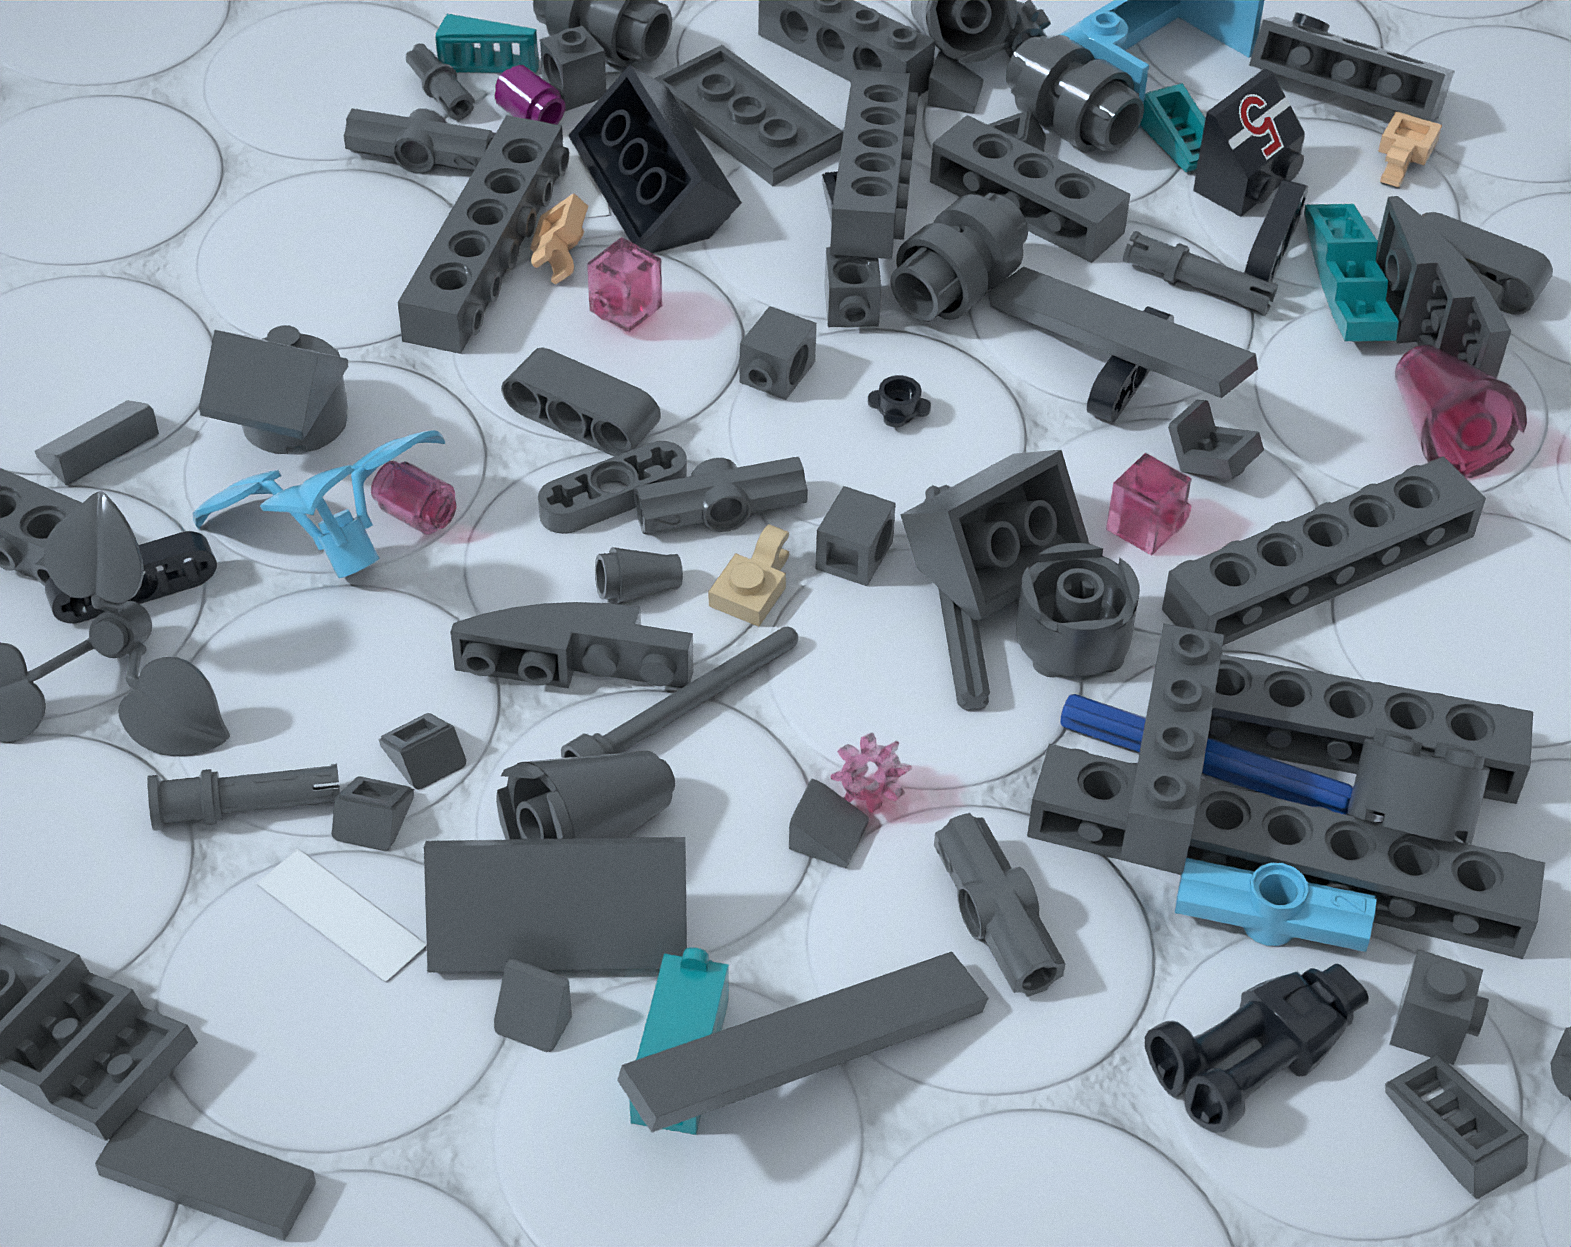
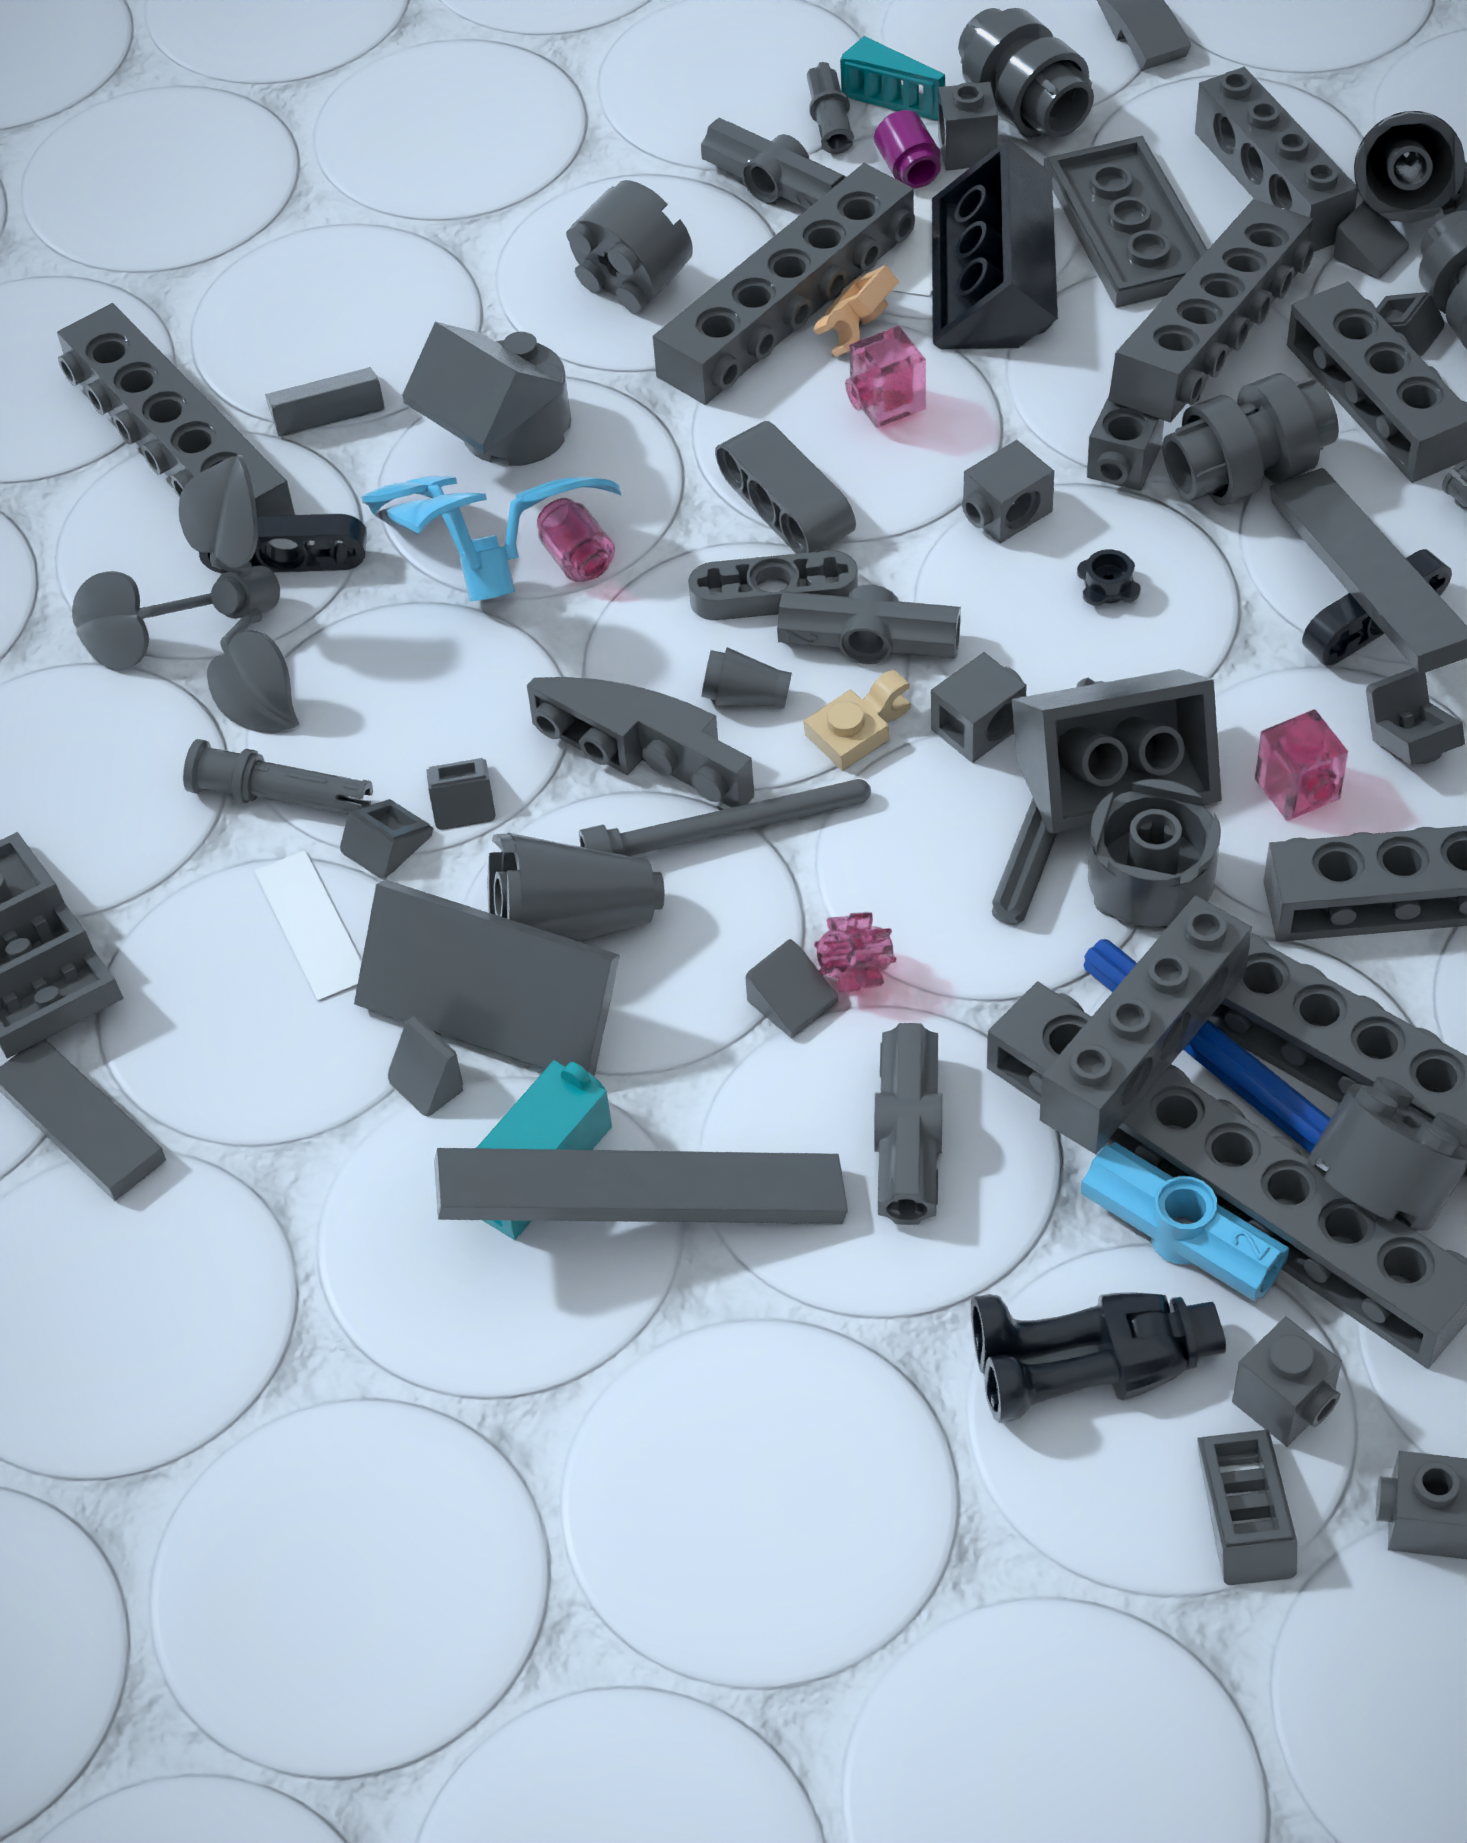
camera: 30 degrees right, 5 degrees up
(330, 231) = (628, 245): none -> dark grey brick

